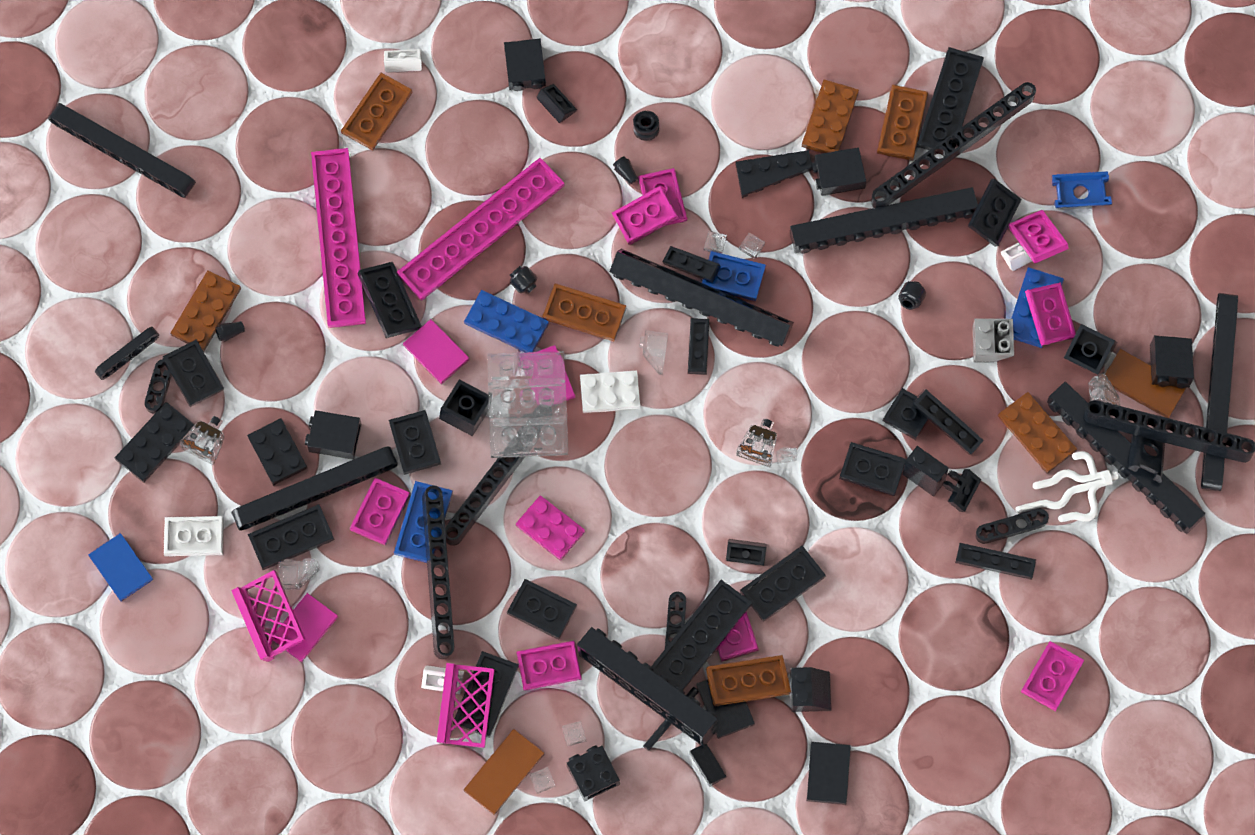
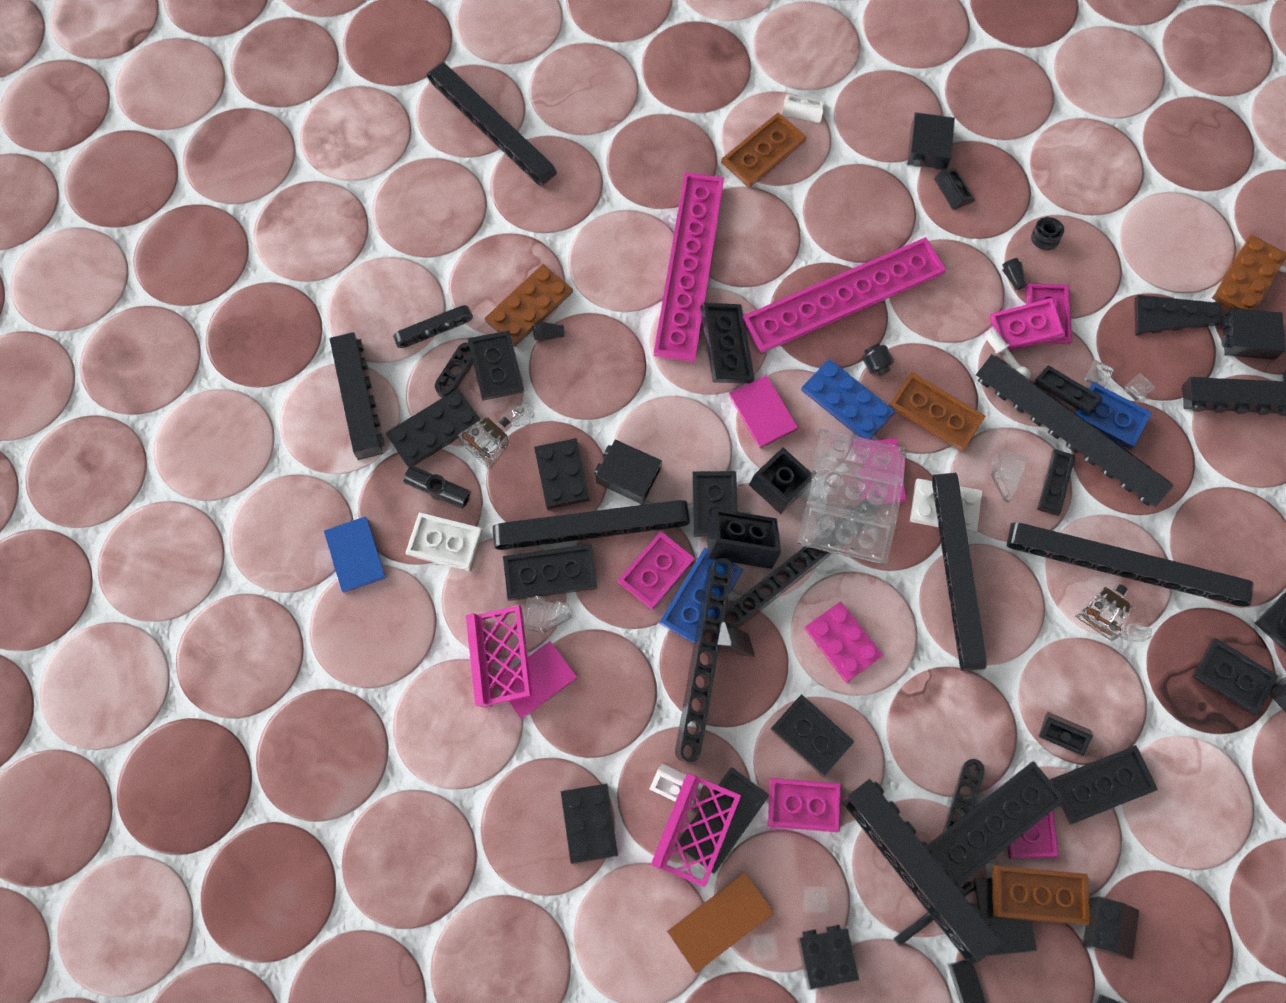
camera: 15 degrees right, 0 degrees up
(79, 433) = (356, 396): none -> black brick
(162, 490) = (425, 482): none -> black piece
(226, 413) = (523, 417): none -> clear plant
(379, 727) = (589, 823): none -> black plate
(445, 464) = (743, 538): none -> black slope
(460, 550) = (735, 640): none -> black slope
(624, 241) = (1000, 346): none -> white pin
(630, 443) = (959, 572): none -> black beam
(770, 400) = (1130, 564): none -> black beam

